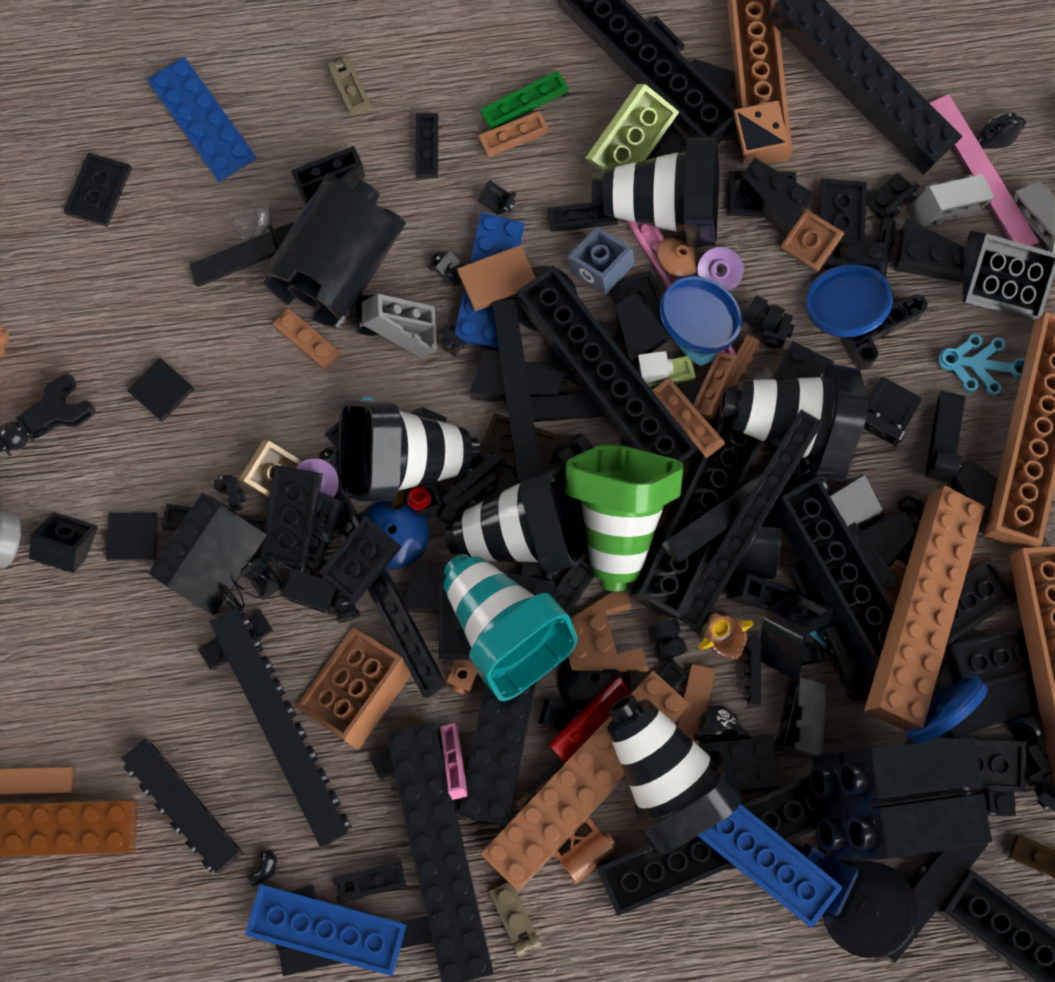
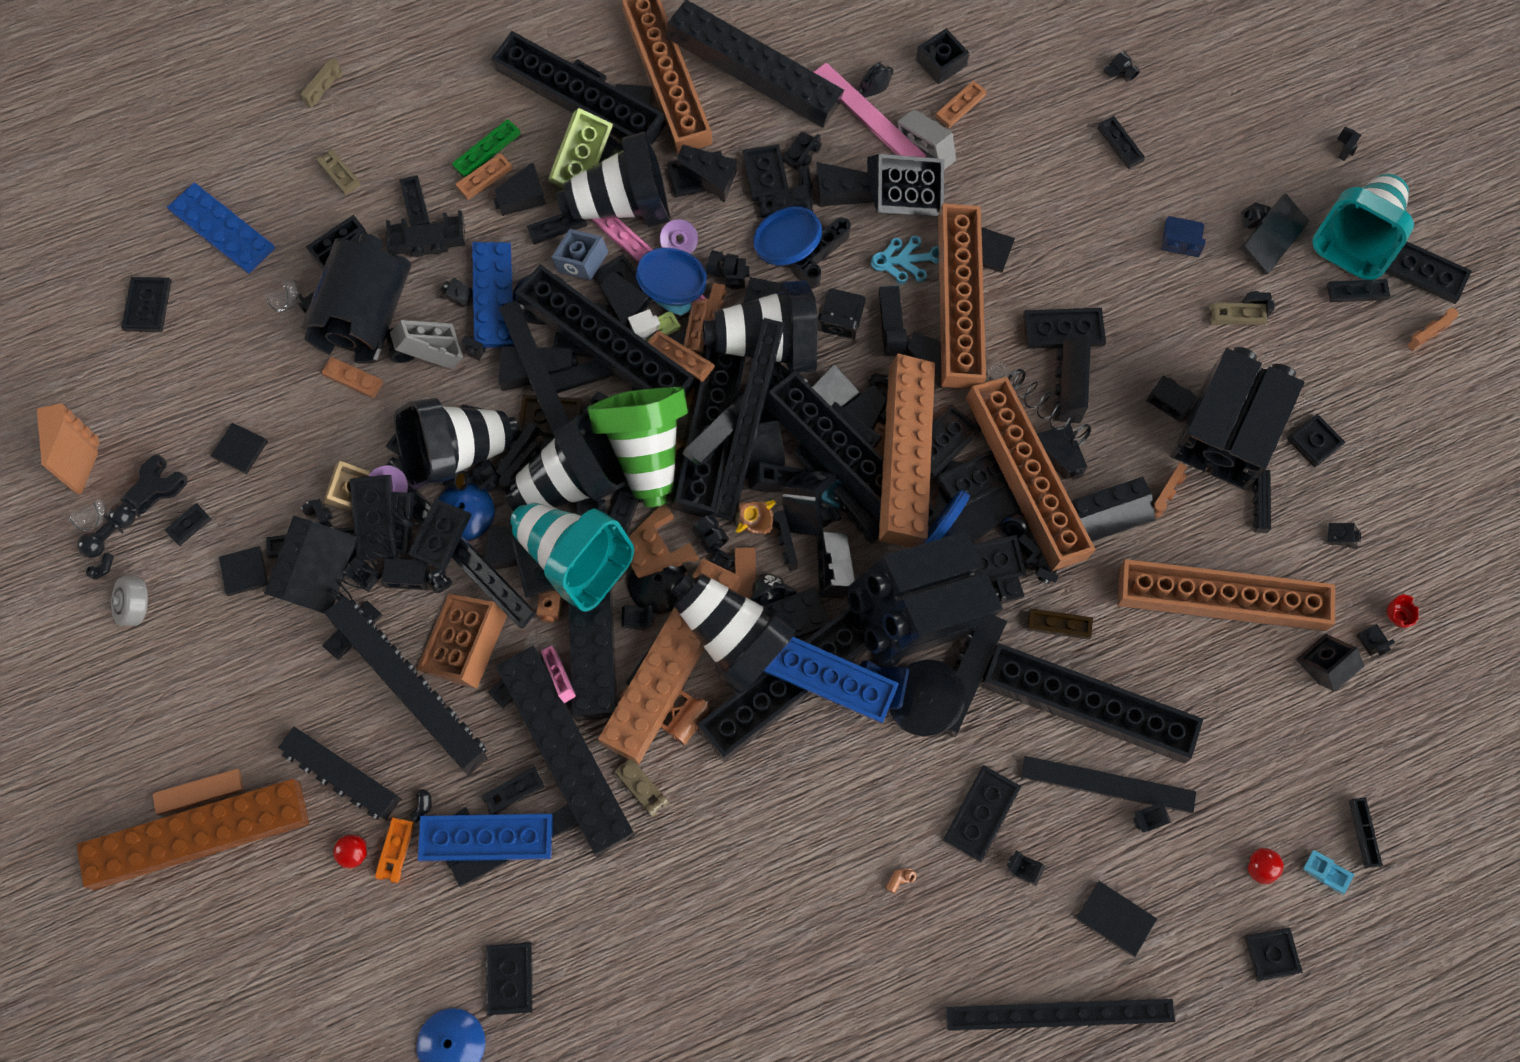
camera: 15 degrees left, 5 degrees down
(62, 542) = (184, 590): black slope -> none
(83, 465) = (188, 524): none -> black plate
(173, 898) = (350, 851): none -> red hair
(222, 912) = (395, 849): none -> orange plate
(234, 259) = (274, 329): black tile -> none
(418, 498) = (477, 476): red plate -> none
(429, 194) = (425, 238): none -> black bracket
(495, 277) = (495, 288): nougat tile -> none
(497, 198) = (482, 229): black bracket -> none
(550, 164) = (520, 192): none -> black slope
(588, 720) = (658, 615): red tile -> none
(677, 257) = (642, 238): nougat dish -> none
(761, 128) = (681, 120): tile -> none
(811, 240) = (746, 198): nougat tile -> none
(950, 199) = (848, 140): light grey wedge -> none

